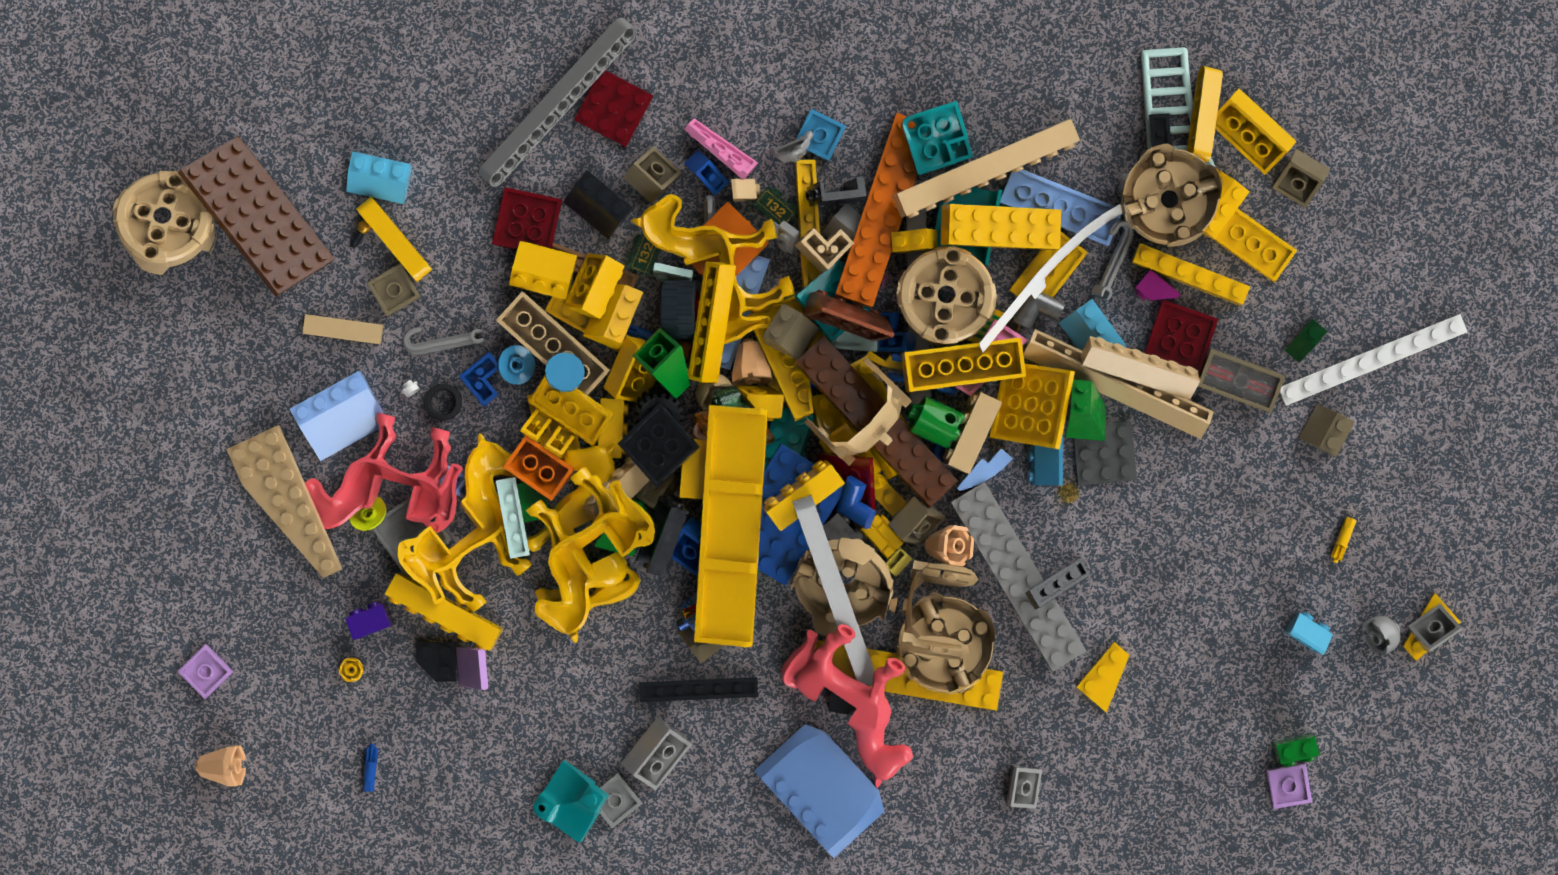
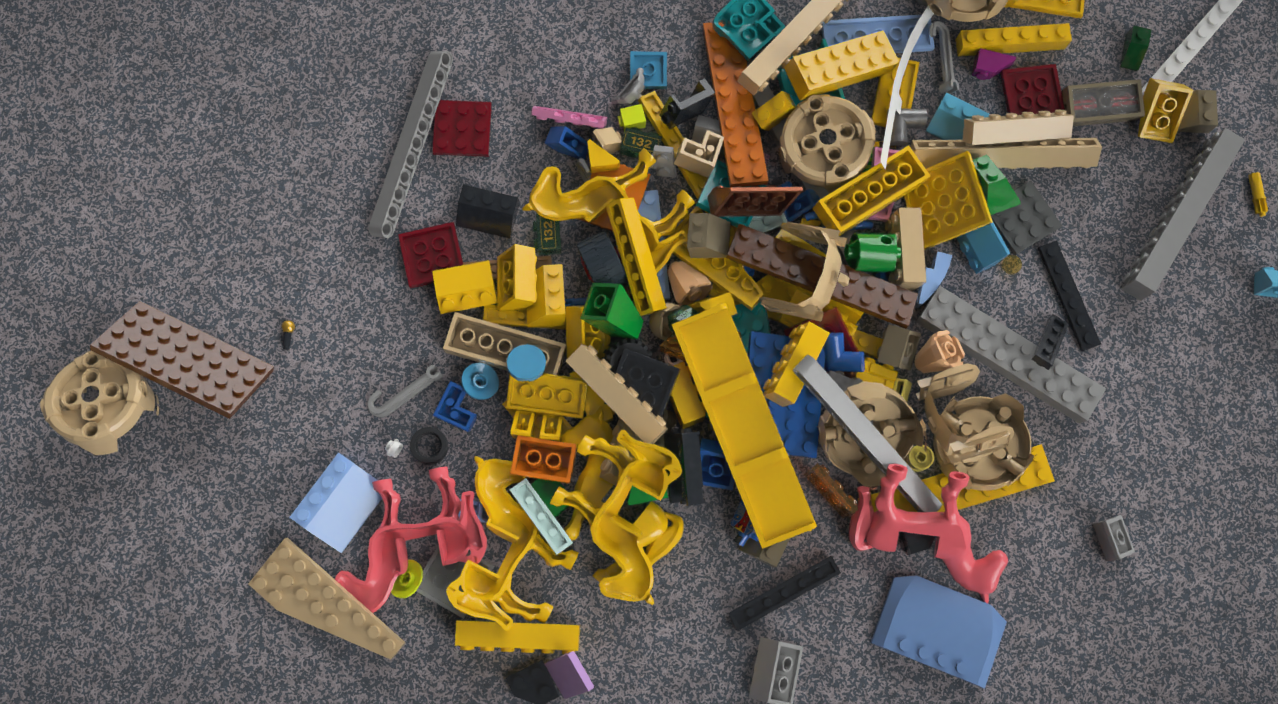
camera: 30 degrees left, 10 degrees down
(343, 329) = (309, 425): tan tile -> none
(369, 621) = (452, 678): dark purple brick -> none
(378, 177) = (281, 277): medium azure slope -> none
(394, 239) = (320, 324): yellow beam -> none
(394, 290) = (340, 368): dark tan plate -> none
(631, 442) = (617, 394): none -> tan brick
(652, 174) = (521, 166): dark tan slope -> none
(666, 272) = (571, 238): light aqua plate -> none
(726, 207) = (600, 159): none -> yellow slope
(779, 177) = (632, 117): none -> neon yellow brick
(784, 620) = (831, 490): none -> clear orange plate
(885, 633) = (919, 459): none -> light yellow wheel
(1104, 676) = (1128, 406): yellow wing -> none
(1106, 548) = (1069, 296): none -> black plate
(1254, 524) = (1182, 214): none -> light grey brick
(1294, 414) = (1164, 109): none -> yellow slope

